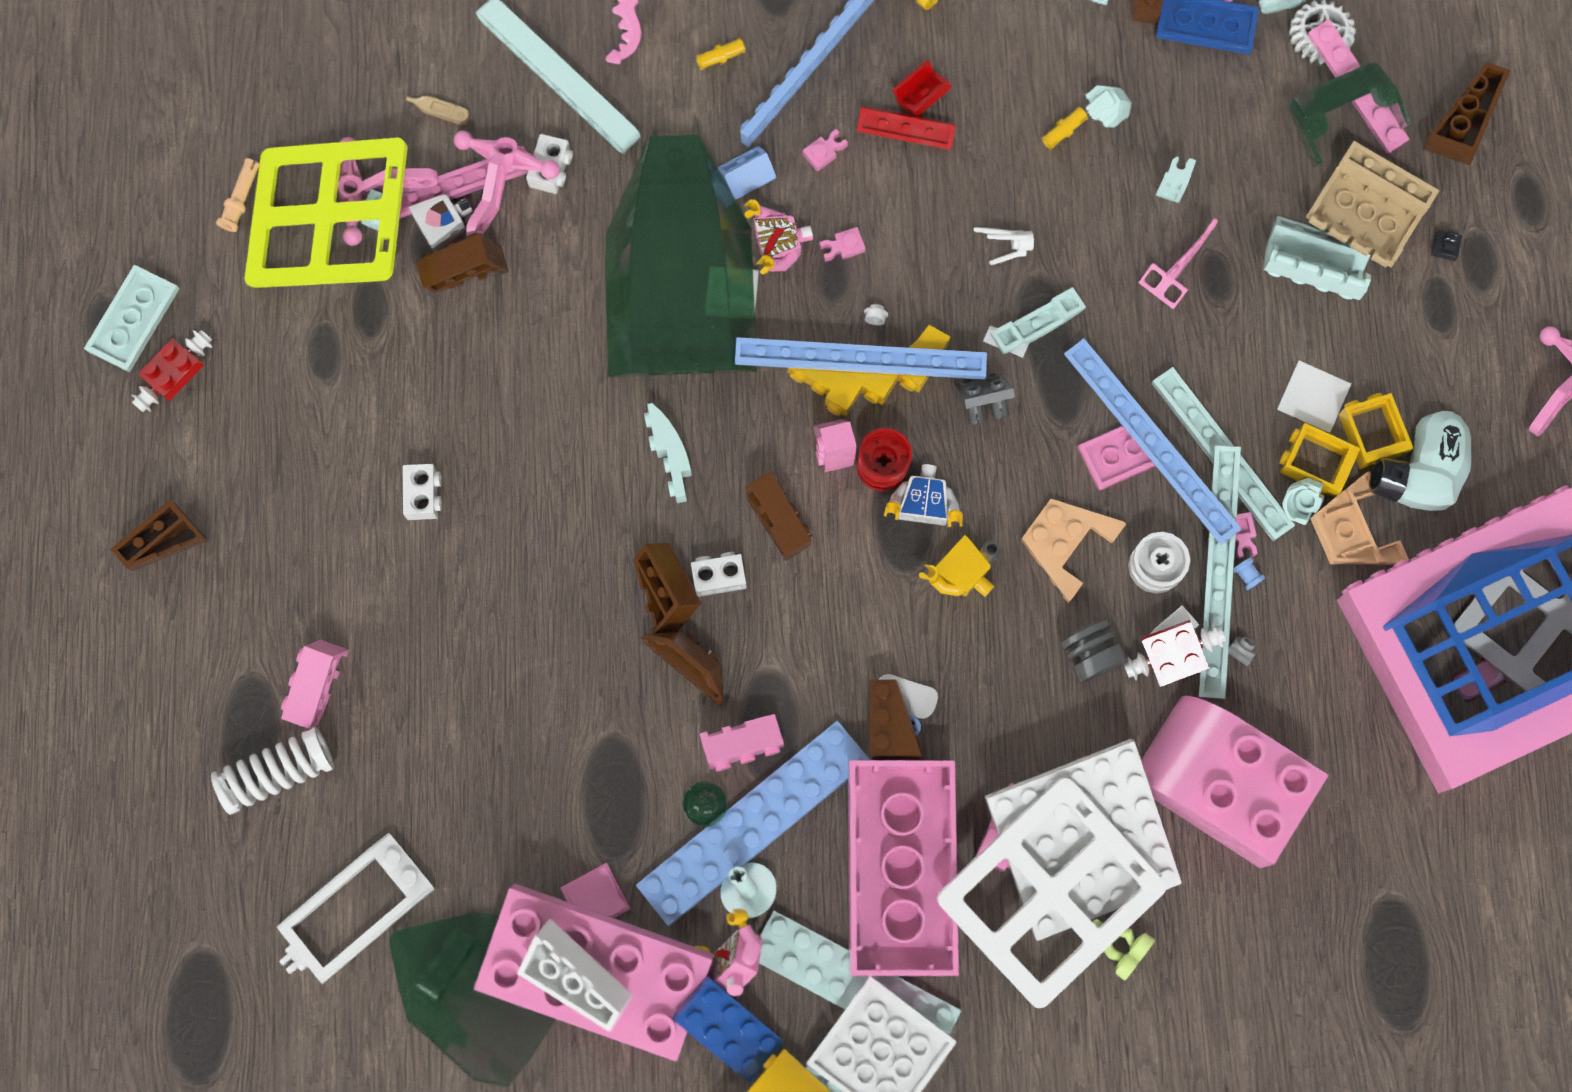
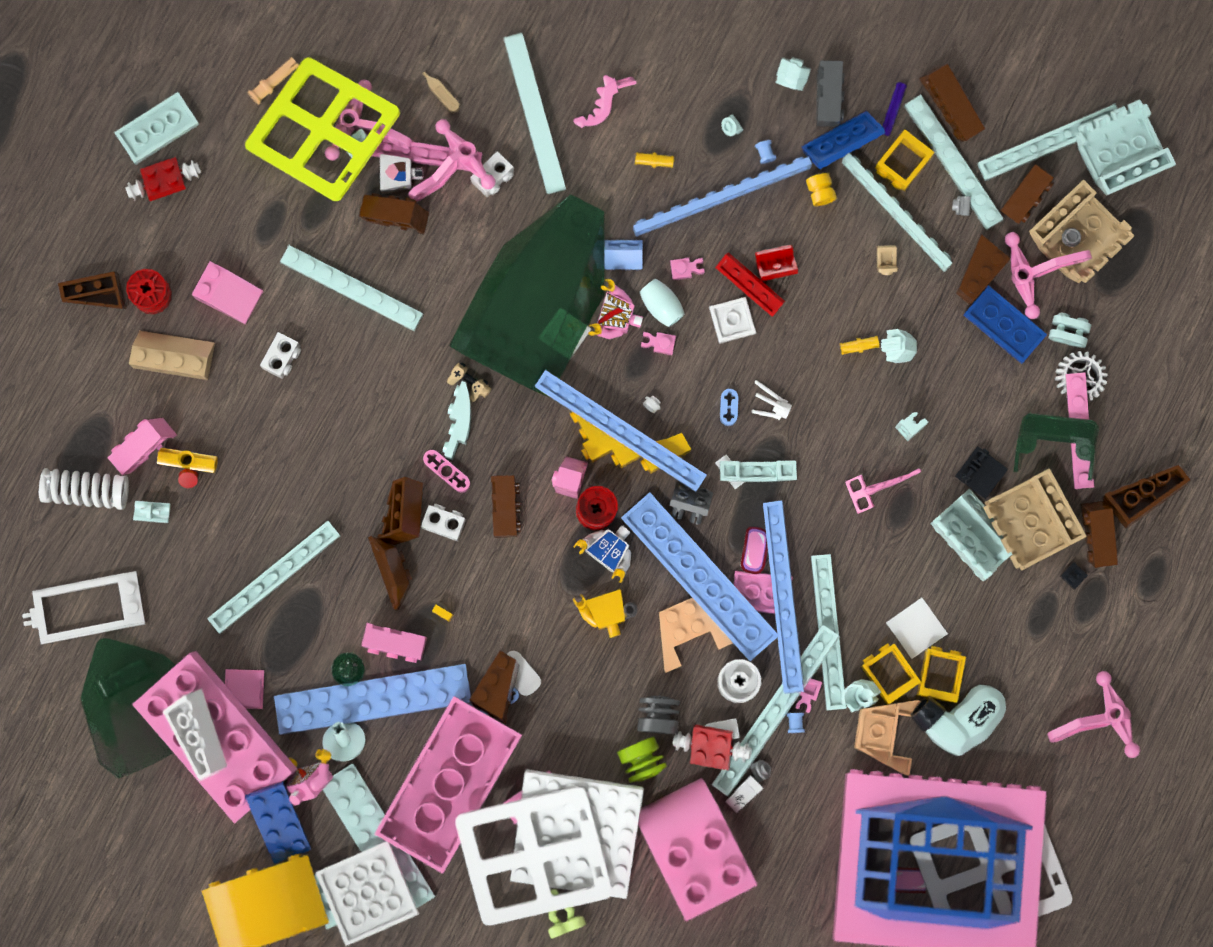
camera: 30 degrees right, 5 degrees up
(236, 508) = (151, 301): none -> red wheel
(292, 562) = (172, 355): none -> tan slope
(317, 456) = (227, 292): none -> bright pink slope
(362, 675) = (175, 459): none -> yellow piece
(369, 752) = (151, 512): none -> light aqua hips
(390, 690) = (188, 478): none -> tile
(459, 373) = (351, 288): none -> light aqua plate
(556, 748) = (273, 577): none -> light aqua plate
(668, 518) = (432, 466): none -> bright pink beam
(671, 402) = (479, 388): none -> tan piece
(777, 677) = (442, 613): none -> yellow tile
(821, 198) = (662, 302): none -> light aqua piece
(909, 177) = (732, 320): none -> white tile
(967, 269) = (734, 407): none -> light blue beam
(1038, 22) = (886, 259): none -> tan bracket
(1044, 472) = (699, 577): none -> light blue plate
(1087, 410) = (754, 550): none -> sticker
(1106, 712) = (642, 759): none -> lime wheel
(1241, 685) = (744, 794): none -> white leg
(1279, 190) = (981, 472): none -> black hinge
(1445, 171) = (1100, 534): none -> reddish brown wedge

